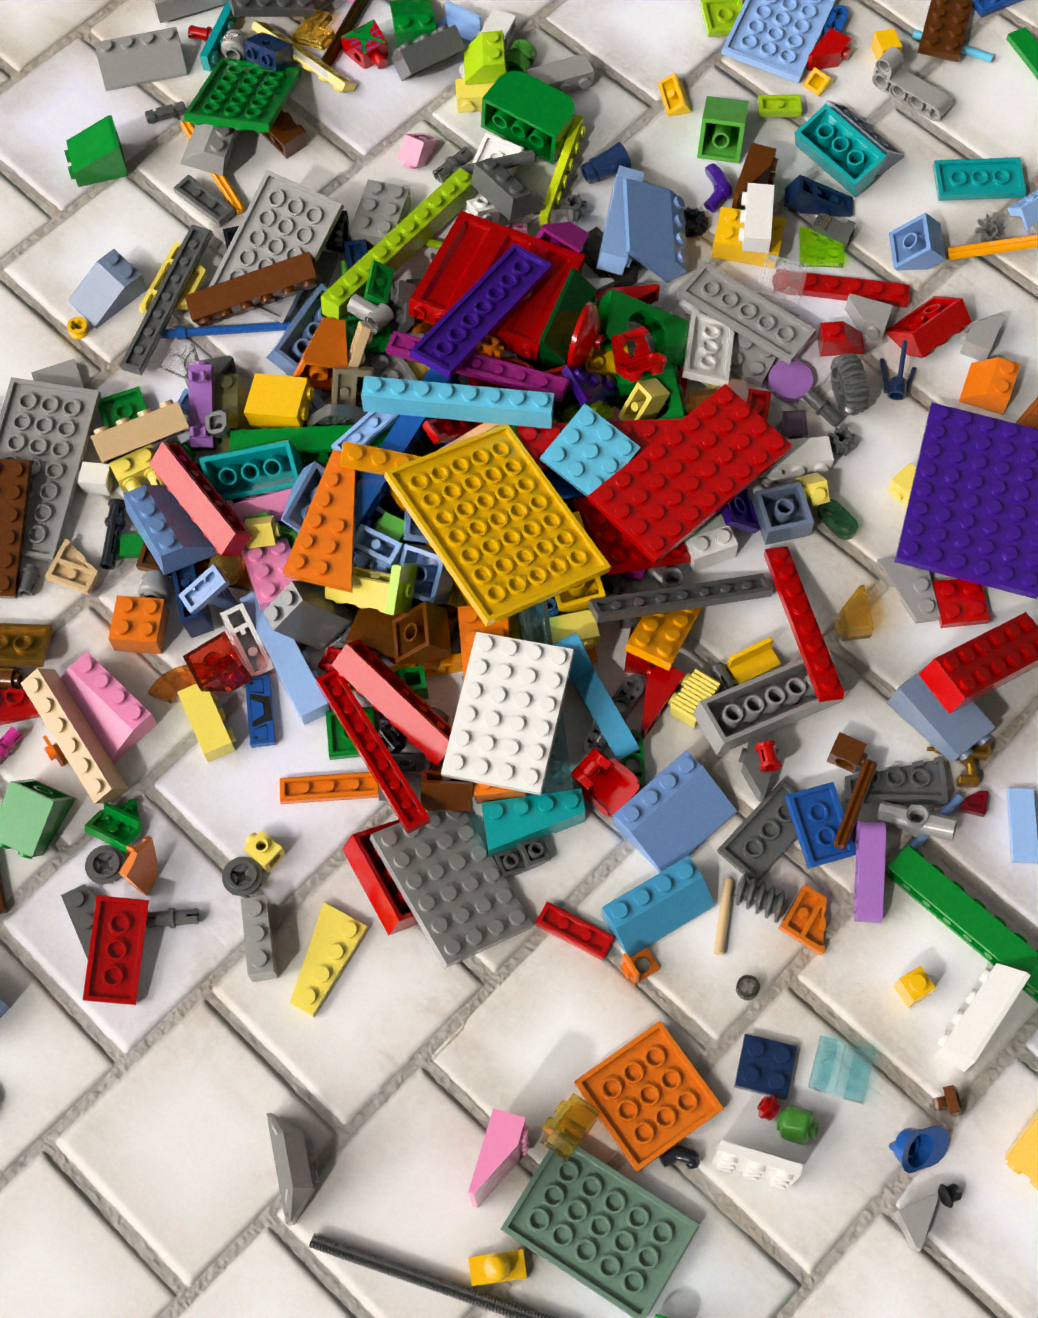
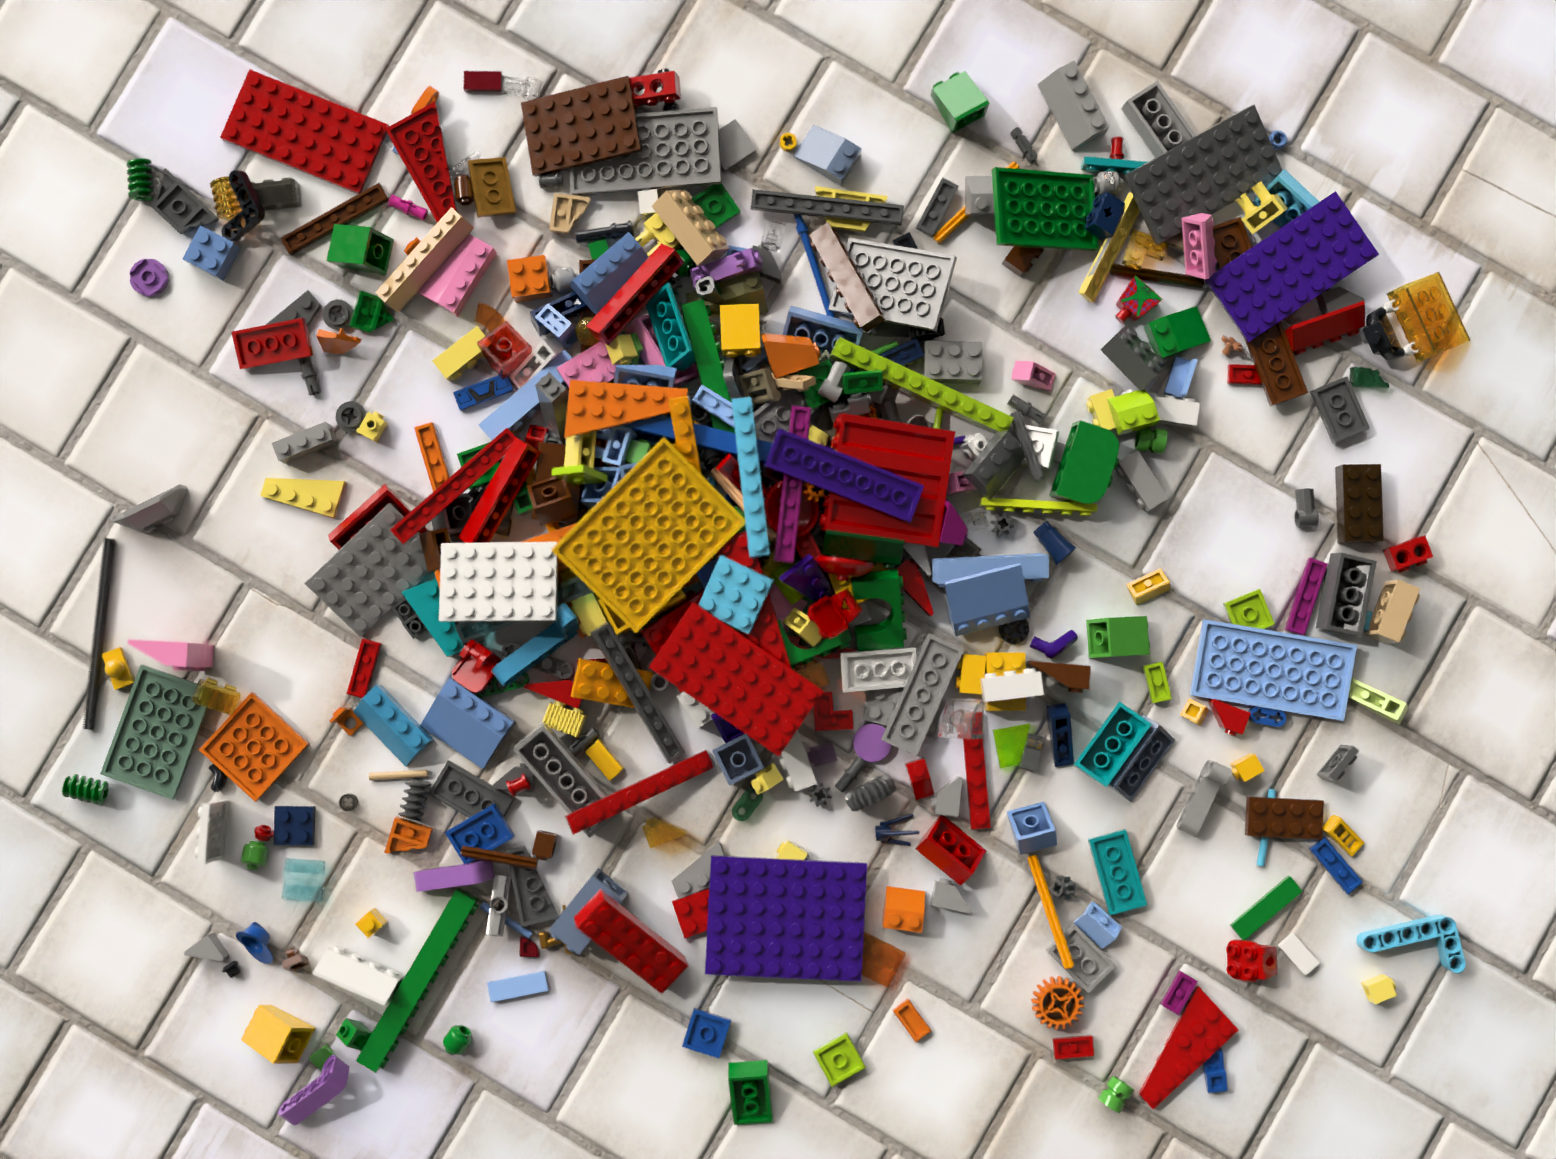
camera: 75 degrees right, 20 degrees up
(736, 264) = (971, 671): none -> yellow brick

